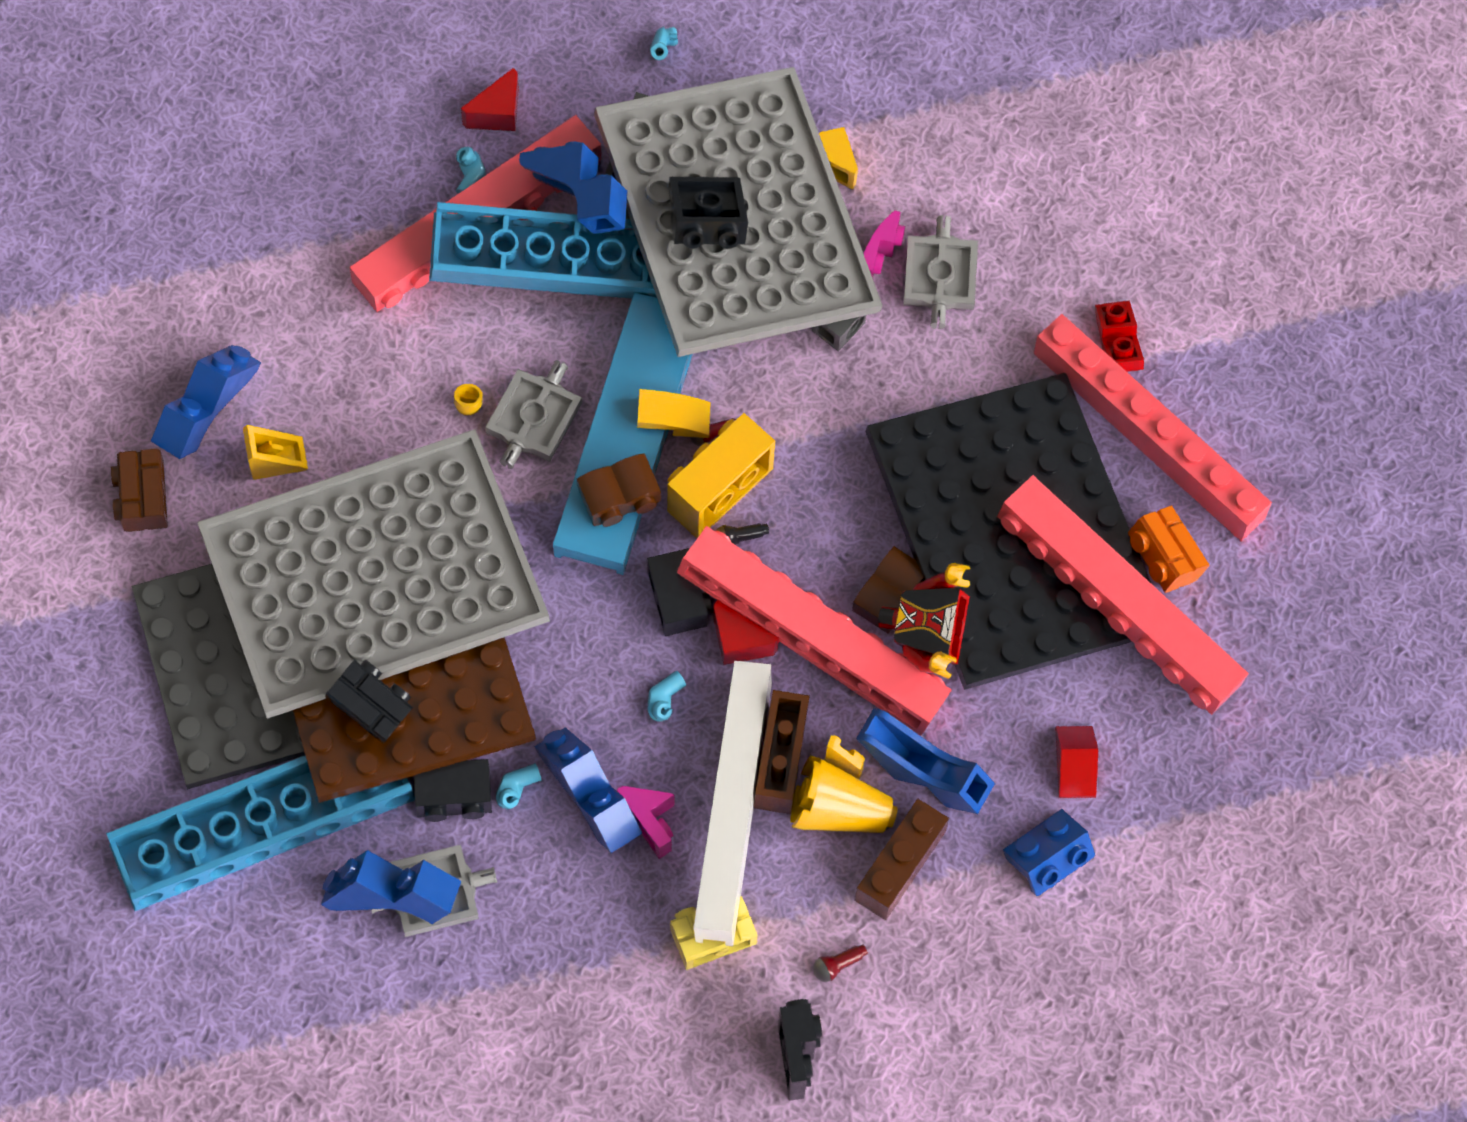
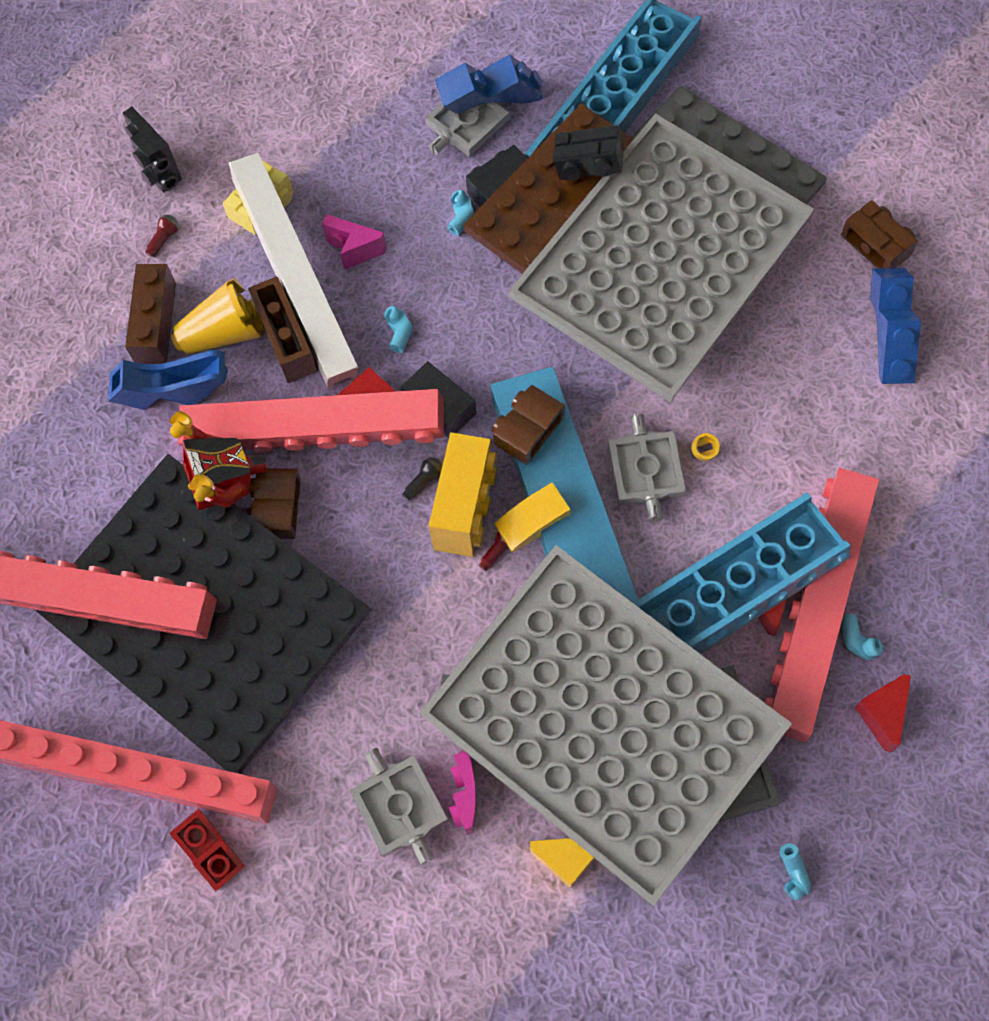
camera: 155 degrees right, 0 degrees up
(273, 452) = (814, 316): yellow slope -> none
(575, 171) = (760, 649): blue arch -> none
(587, 785) = (414, 230): blue arch -> none
(708, 211) = (619, 678): black plate -> none
(846, 760) = (236, 350): yellow tile -> none
(1050, 851) = (47, 388): blue bracket -> none
(1076, 761) = (60, 468): red slope -> none
(1167, 549) = (62, 668): orange brick -> none

